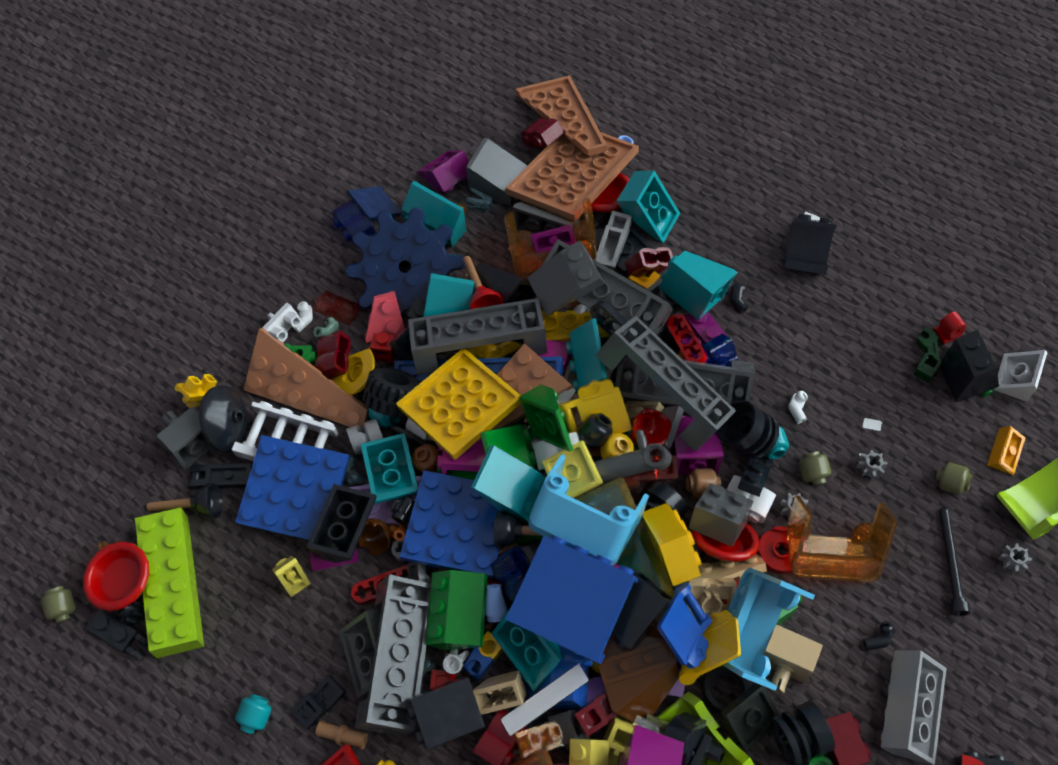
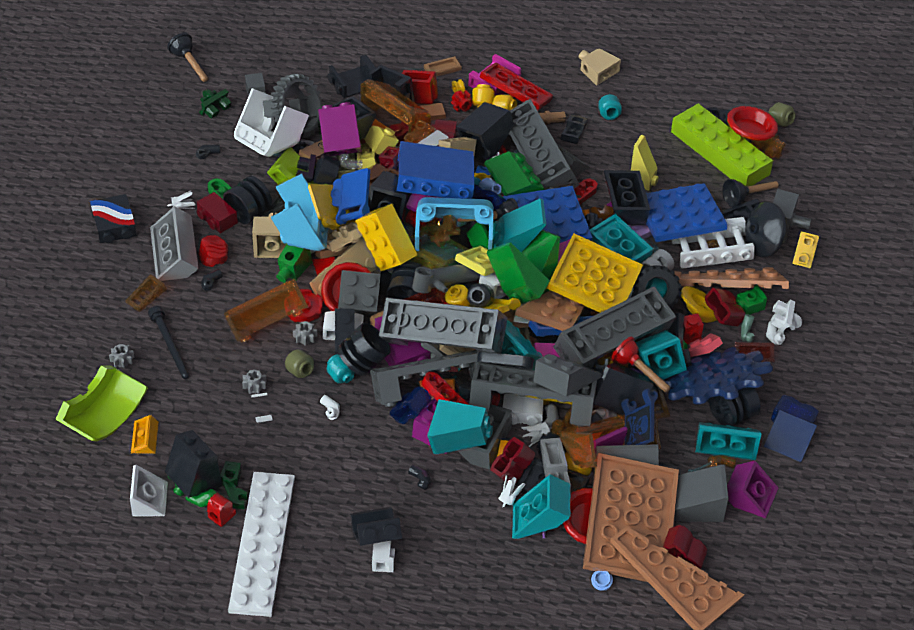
camera: 150 degrees right, 15 degrees down
(518, 229) = (640, 420): none -> dark blue flag
(668, 242) = (506, 495): none -> white piece
(864, 678) = (213, 250): none -> red hair
(914, 291) = (261, 544): none -> white plate
(952, 656) = (145, 285): none -> clear orange slope
(954, 478) = (184, 393): olive head -> none

